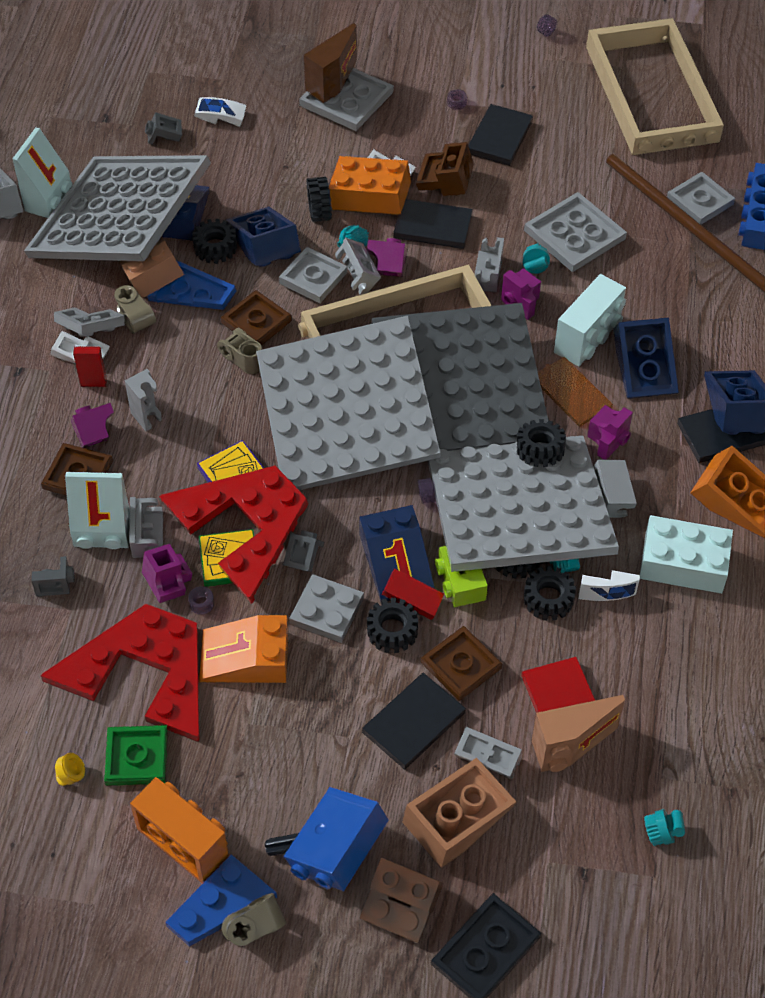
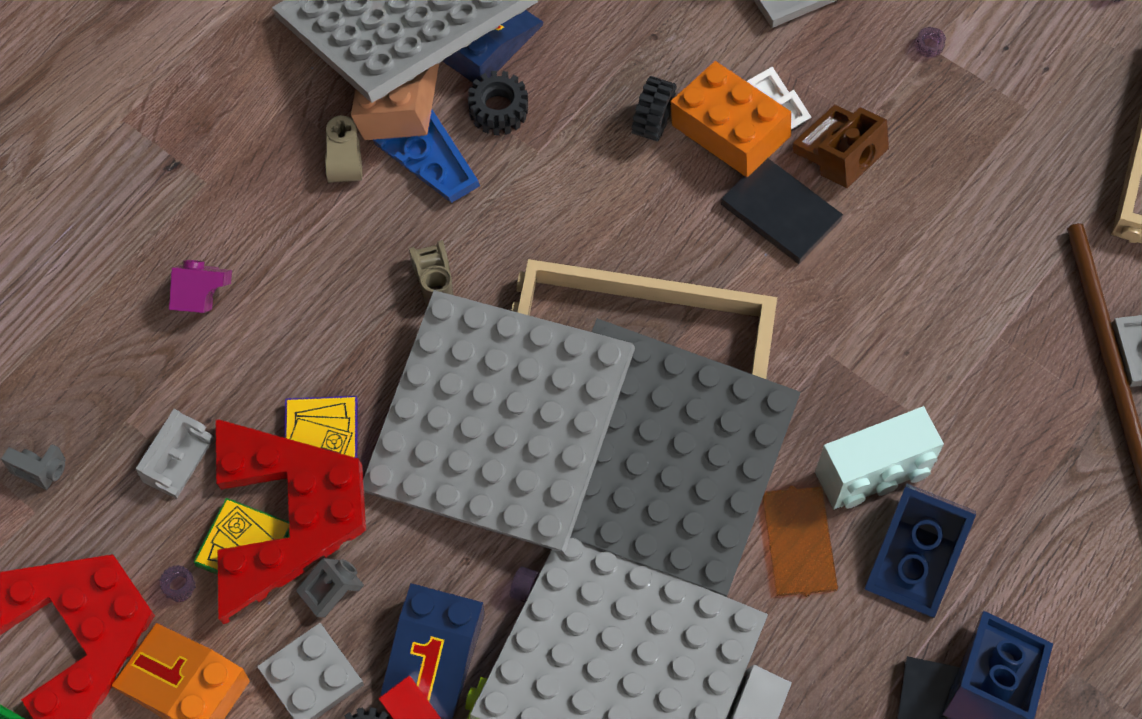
camera: 30 degrees right, 10 degrees up
(65, 344) = (252, 174): white slope -> none
(74, 459) = (147, 338): reddish brown plate -> none
(87, 324) = (275, 144): light grey plate -> none
(90, 366) = (239, 207): red tile -> none
(98, 510) = (119, 410): light aqua slope -> none
(141, 398) = (271, 283): light grey hinge -> none
(165, 572) = (156, 527): magenta brick -> none
(257, 317) = (478, 237): reddish brown plate -> none
(265, 236) = (560, 124): dark blue slope -> none
(313, 274) = (584, 210): light grey plate -> none
(354, 233) = (663, 184): teal piece -> none
(359, 265) = (645, 227): light grey hinge -> none
(390, 256) = (688, 233): magenta brick -> none
(489, 265) = (809, 308): light grey hinge -> none
(500, 134) = (952, 120): black tile -> none
(521, 288) = (823, 367): magenta brick -> none
(536, 259) = (875, 328): teal piece -> none
(541, 453) = (700, 584): black tyre -> none
(575, 231) = (954, 314): light grey plate -> none
(610, 430) = (805, 627): magenta brick -> none

